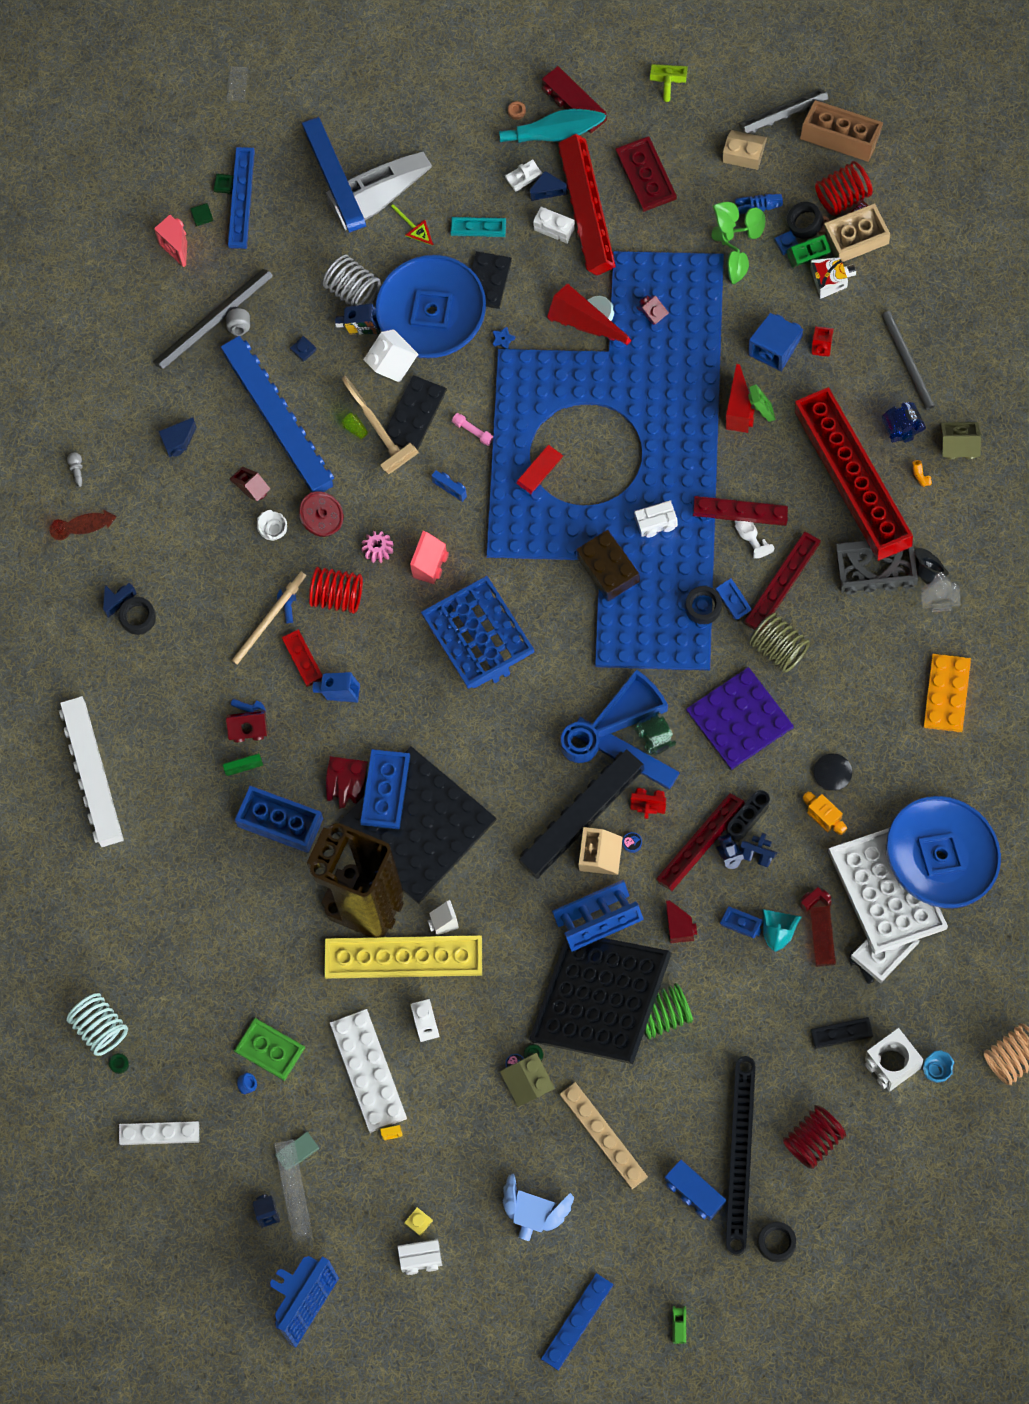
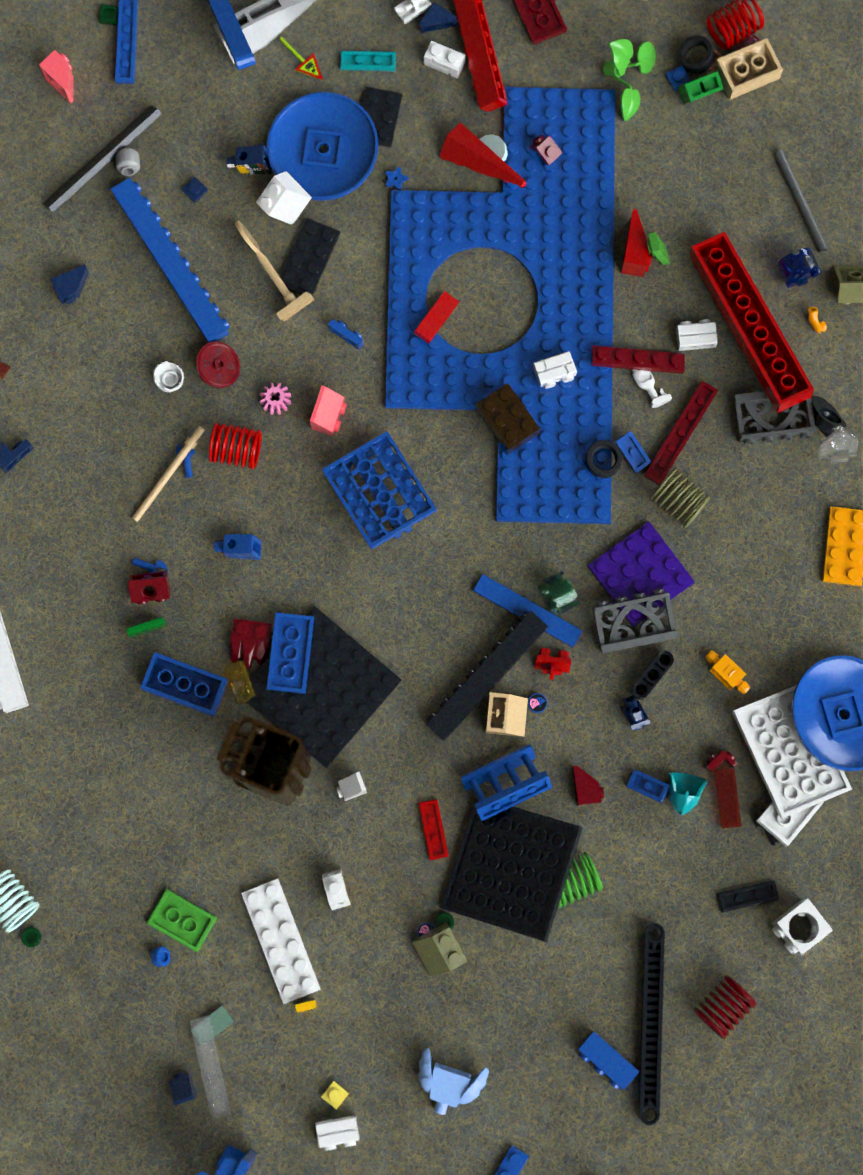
camera: 10 degrees left, 10 degrees up
(139, 629) = (31, 458): black tyre -> none
(159, 1133) = (73, 1008): white plate -> none
(201, 214) = (87, 47): dark green tile -> none
(250, 483) = (145, 332): dark red slope -> none
(302, 658) = (203, 515): red plate -> none
(332, 814) = (239, 682): none -> clear yellow plate
(343, 279) = (258, 123): light grey piece -> none
(354, 425) = (249, 271): clear neon green cone -> none
(403, 957) = (312, 824): light yellow plate -> none
(460, 420) = (354, 265): bright pink bar -> none
(524, 964) = (433, 829): none -> red tile
(603, 1135) = (516, 1004): tan plate -> none
(631, 704) = (535, 561): blue piece -> none
(700, 842) = (605, 703): dark red plate -> none
(755, 773) = (658, 631): none -> dark grey fence
(762, 202) = (651, 35): blue hinge -> none
(766, 854) = (671, 715): dark blue hips -> none
(775, 341) = (669, 182): blue slope -> none
(781, 1227) = (674, 1111): black tyre -> none
(800, 488) = (697, 335): none -> white brick
(822, 341) = (715, 181): red bracket -> none
(830, 275) = (722, 112): torso -> none
(832, 772) = (734, 629): black dish -> none
(933, 1061) = (851, 929): dark azure hair -> none

